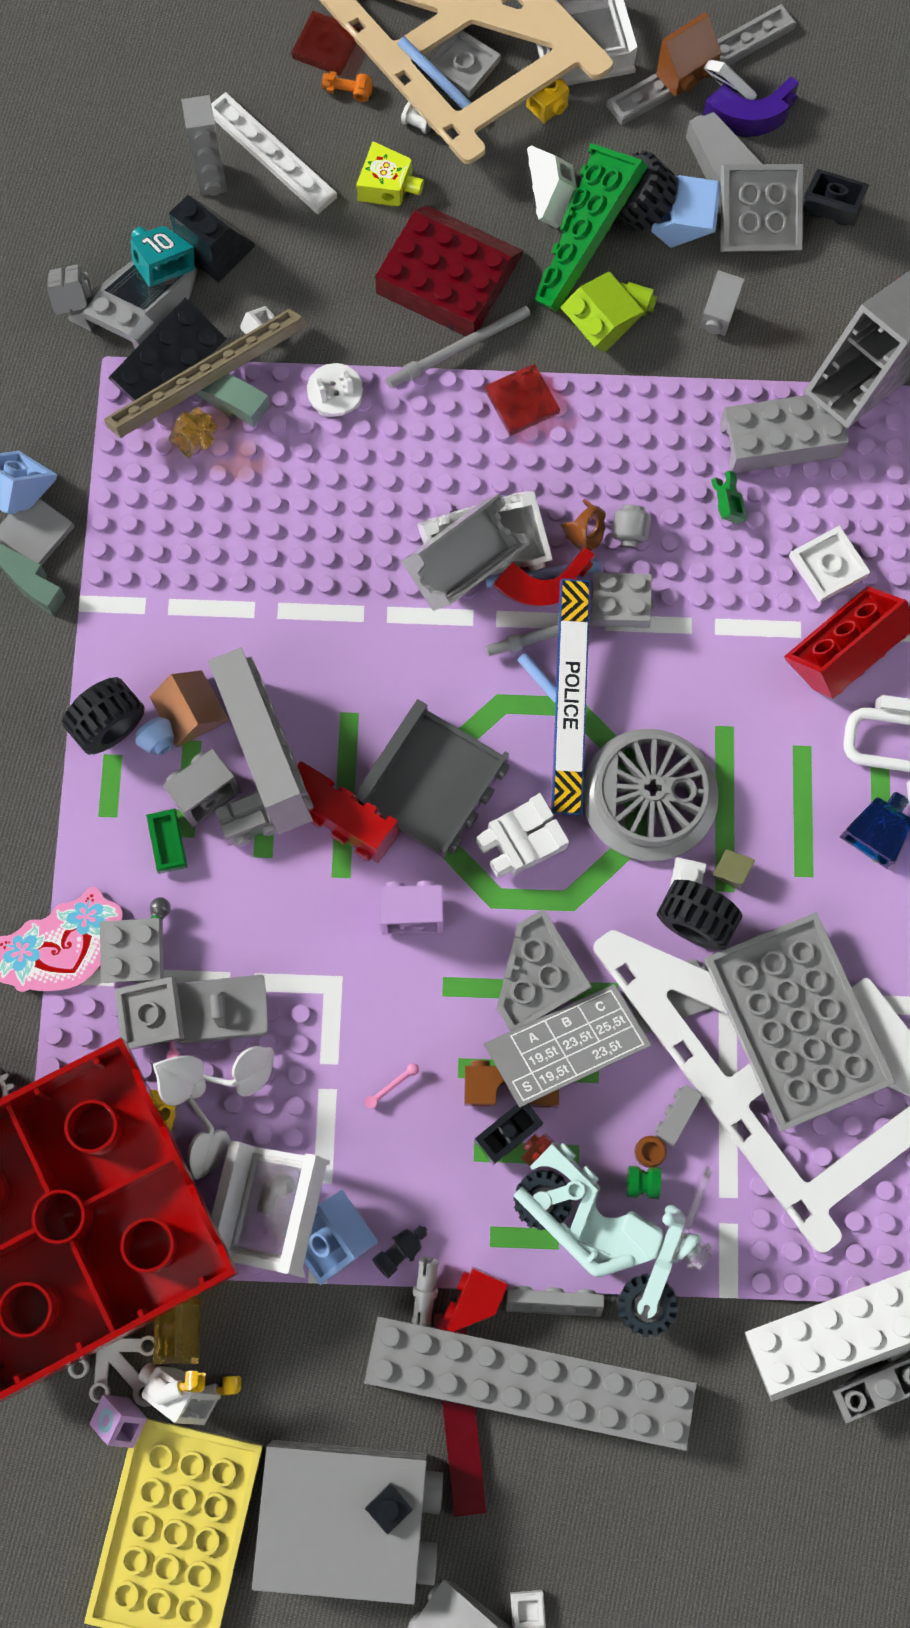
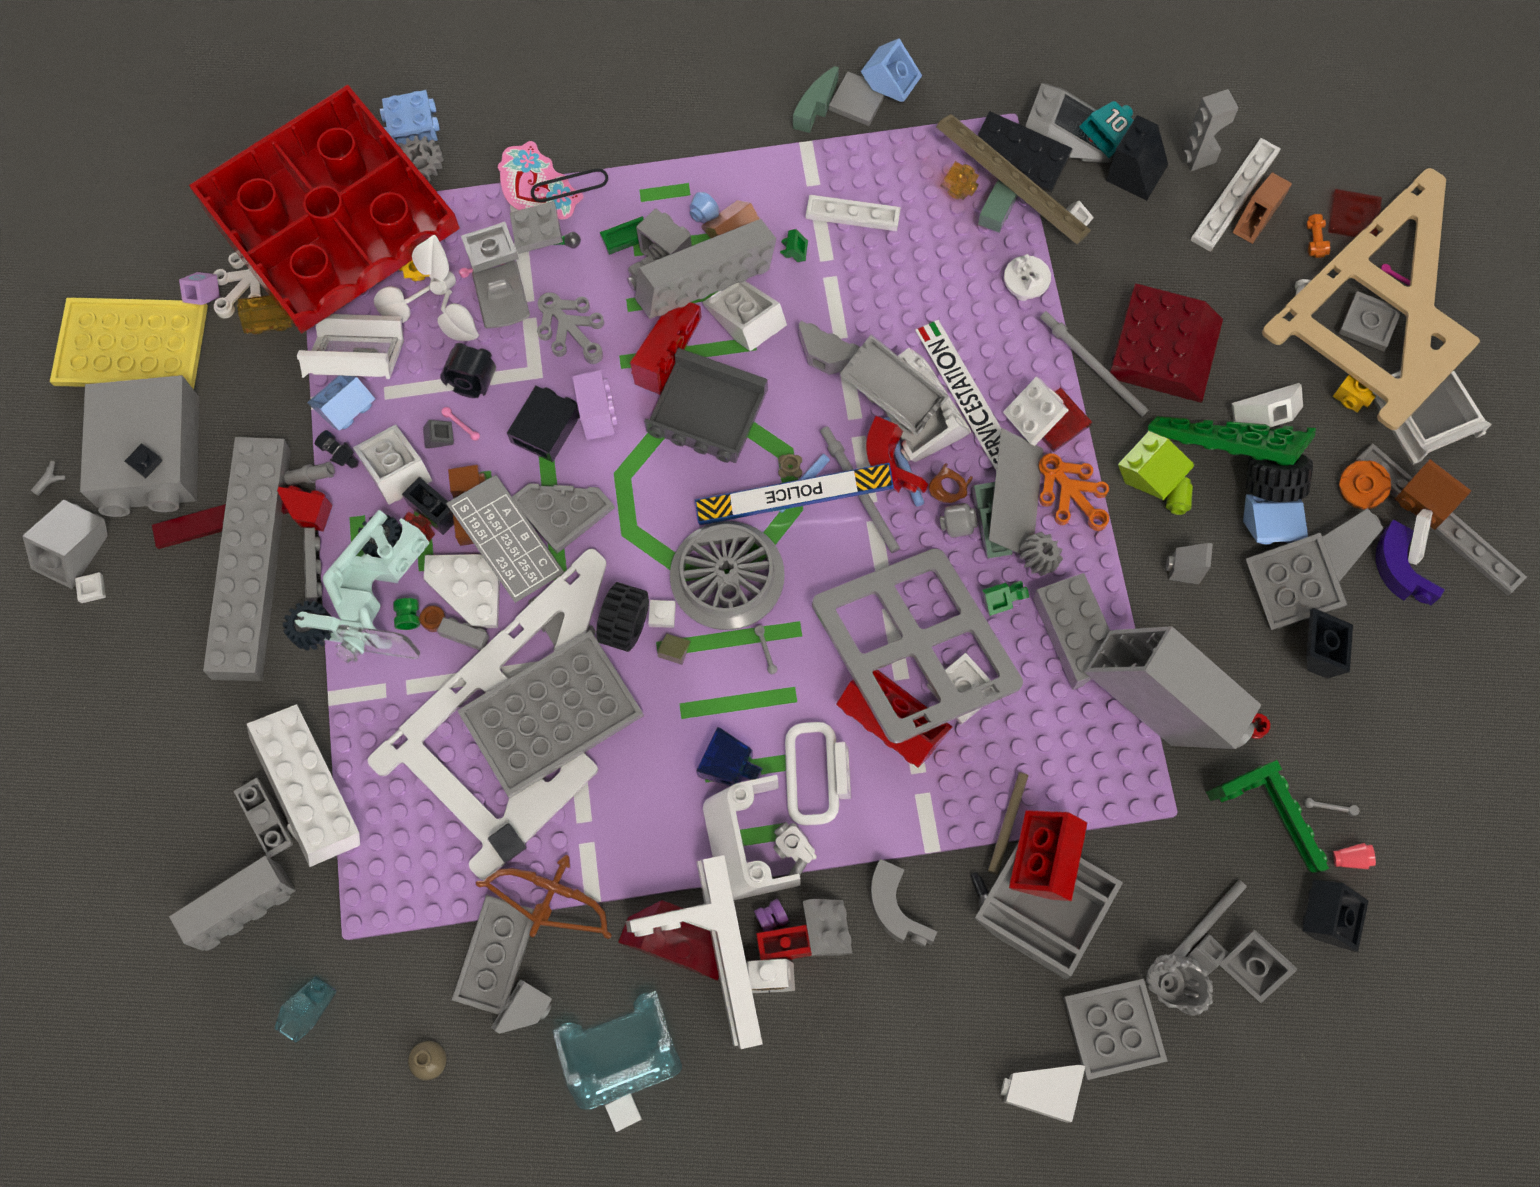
camera: 85 degrees right, 5 degrees down
(68, 289) = (1060, 70): light grey brick -> none
(87, 901) = (567, 177): none -> black piece
(103, 715) = (708, 164): black tyre -> none
(184, 1395) = (218, 324): white torso -> none
(200, 565) = (853, 212): none -> white tile
(234, 636) = (795, 245): none -> green tile
(281, 931) = (569, 323): none -> light grey plant
(301, 127) = (1262, 207): none -> nougat slope
(319, 709) = (746, 314): none -> white slope
(329, 1060) = (468, 370): none -> black brick
(385, 628) = (825, 350): none -> light grey slope
(386, 177) = (1236, 280): neon yellow torso -> none
(400, 32) = (1386, 268): none -> dark pink hinge
(401, 1117) = (438, 434): none -> dark grey slope
(416, 977) = (544, 423): none -> black brick
(433, 72) = (1347, 294): light blue bar -> none
(434, 1178) = (391, 463): none -> white slope
(478, 486) = (962, 388): none -> white sticker
(517, 414) = (1035, 411): none -> white plate
(523, 837) = (670, 481): white hips -> none
(533, 692) = (785, 461): none -> dark tan plate
(612, 404) = (1072, 489): none -> orange plant
(612, 457) = (1015, 491): none -> light grey sticker
(614, 1104) = (466, 586): none -> white plate
(621, 600) = (889, 522): light grey plate -> none
(634, 488) = (983, 503): none -> sand green slope
(654, 119) = (1365, 484): none -> orange tile
(688, 448) = (1041, 553): none -> light grey gear
(725, 769) = (759, 631): none -> light grey hinge
(778, 599) = (916, 644): none -> light grey window

